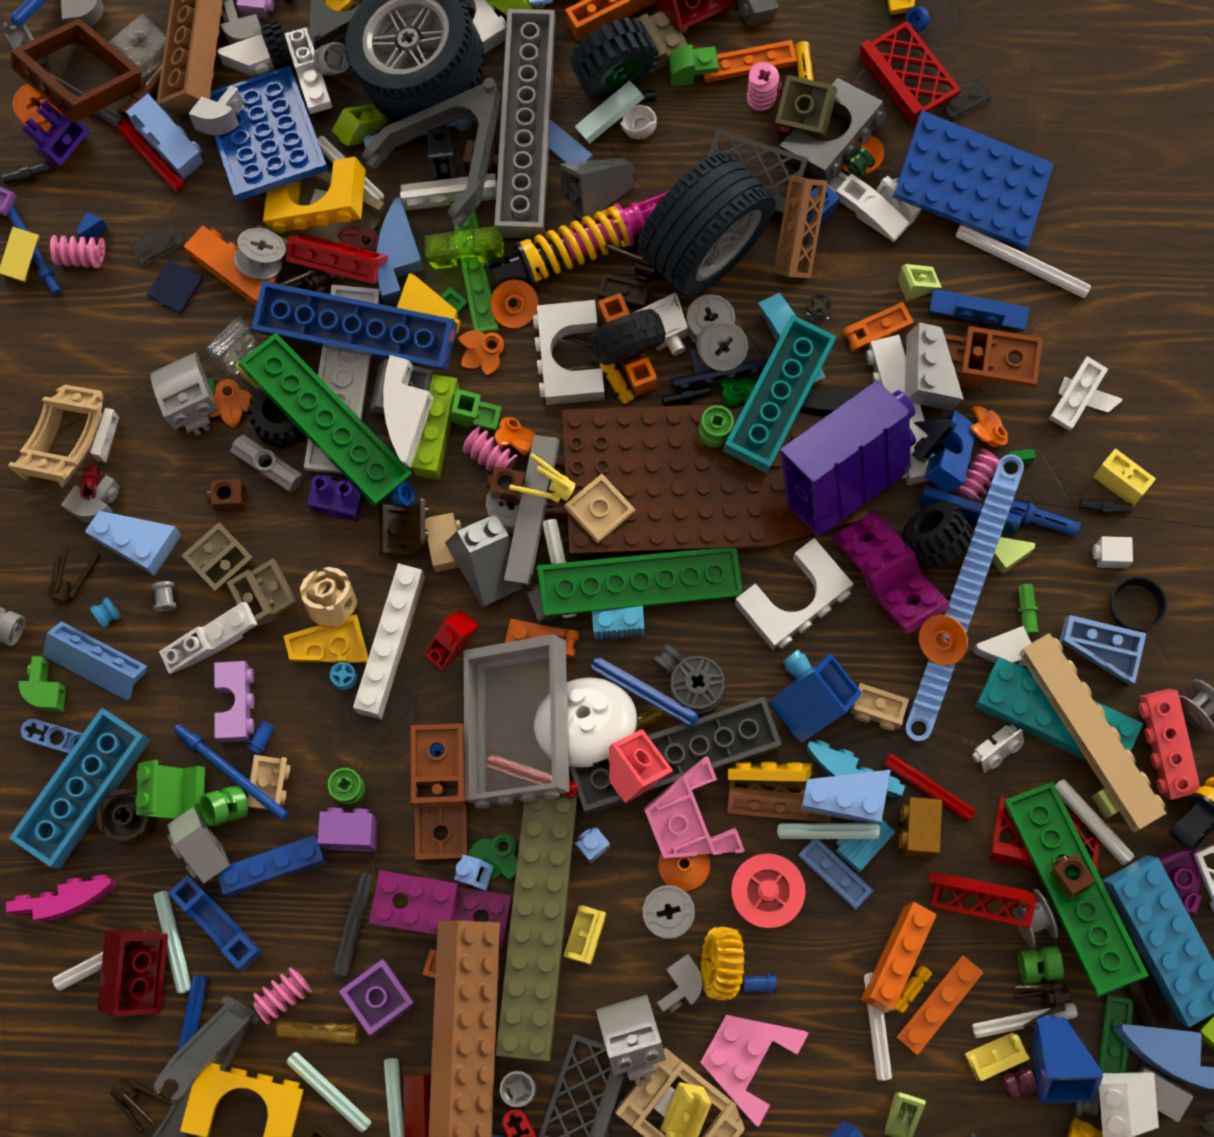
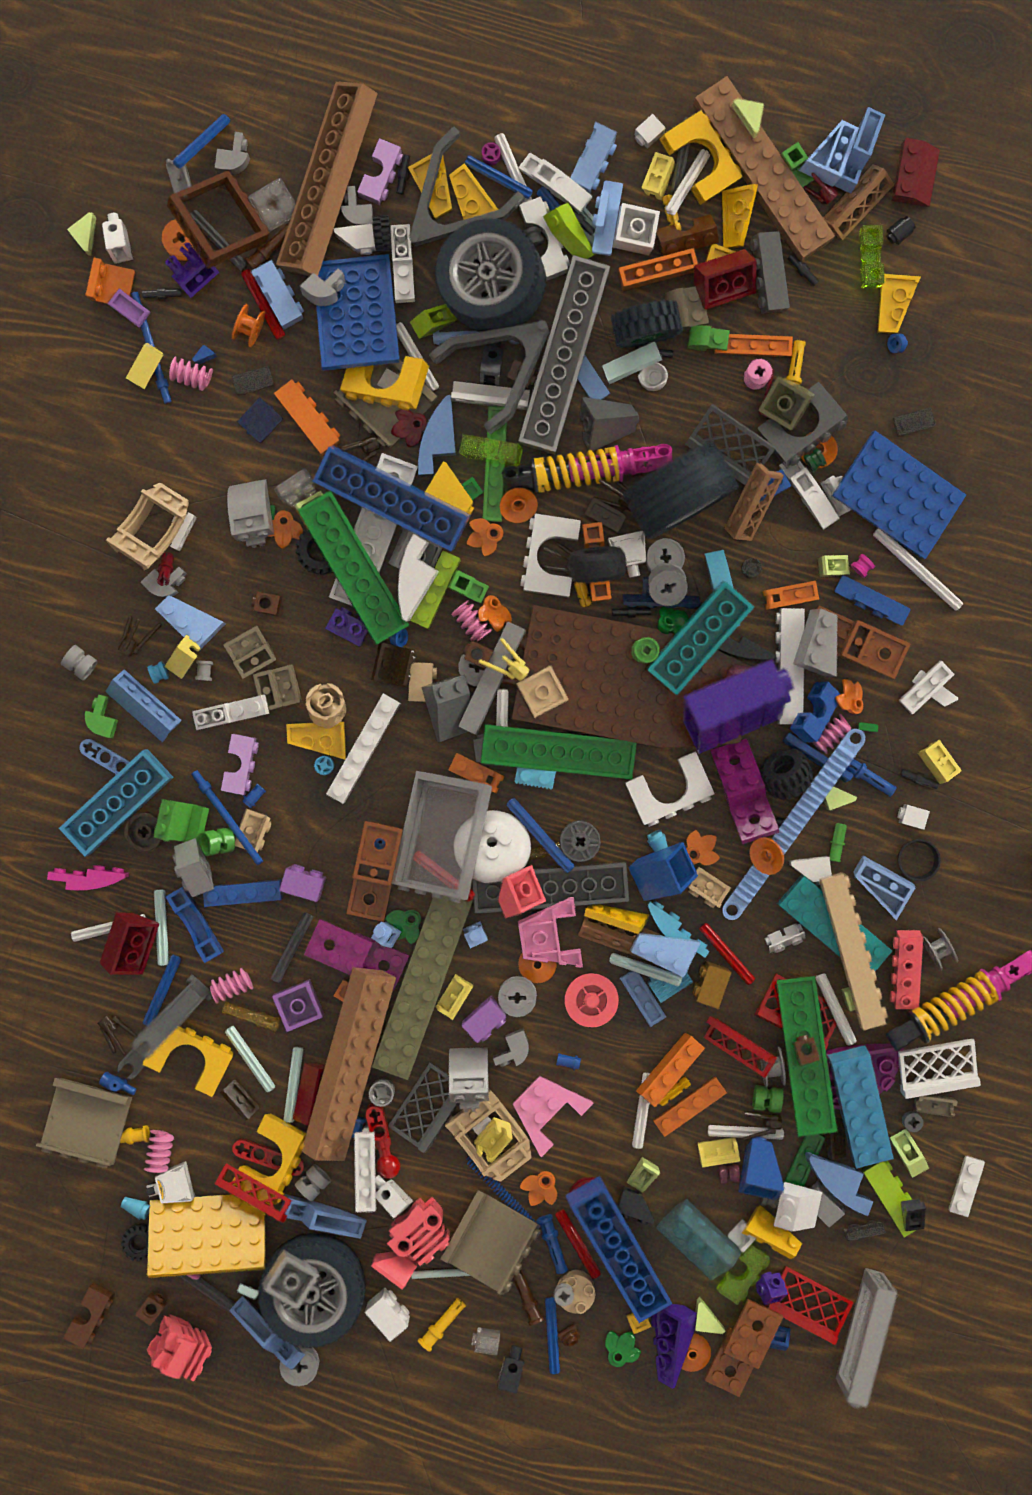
camera: 10 degrees right, 15 degrees up
(131, 582) = (182, 657): none -> light yellow hinge
(136, 178) = (248, 325): none -> orange piece
(259, 253) = (331, 417): light grey piece -> none
(278, 470) = (293, 577): light grey piece -> none
(331, 59) = (422, 263): light grey wheel -> none
(334, 257) = (389, 435): red fence -> none
(346, 787) = (308, 849): bright green wheel -> none
(450, 639) = (409, 758): red slope -> none
(632, 951) = (484, 1019): none -> medium lavender brick
(667, 659) = (564, 814): dark grey wheel -> none
(722, 963) = (545, 1043): yellow gear -> none
(858, 660) = (703, 847): none -> orange plate
(890, 78) = (860, 389): red fence -> none
(937, 433) = (807, 698): black slope -> none
(954, 271) = (863, 565): none -> dark pink wheel

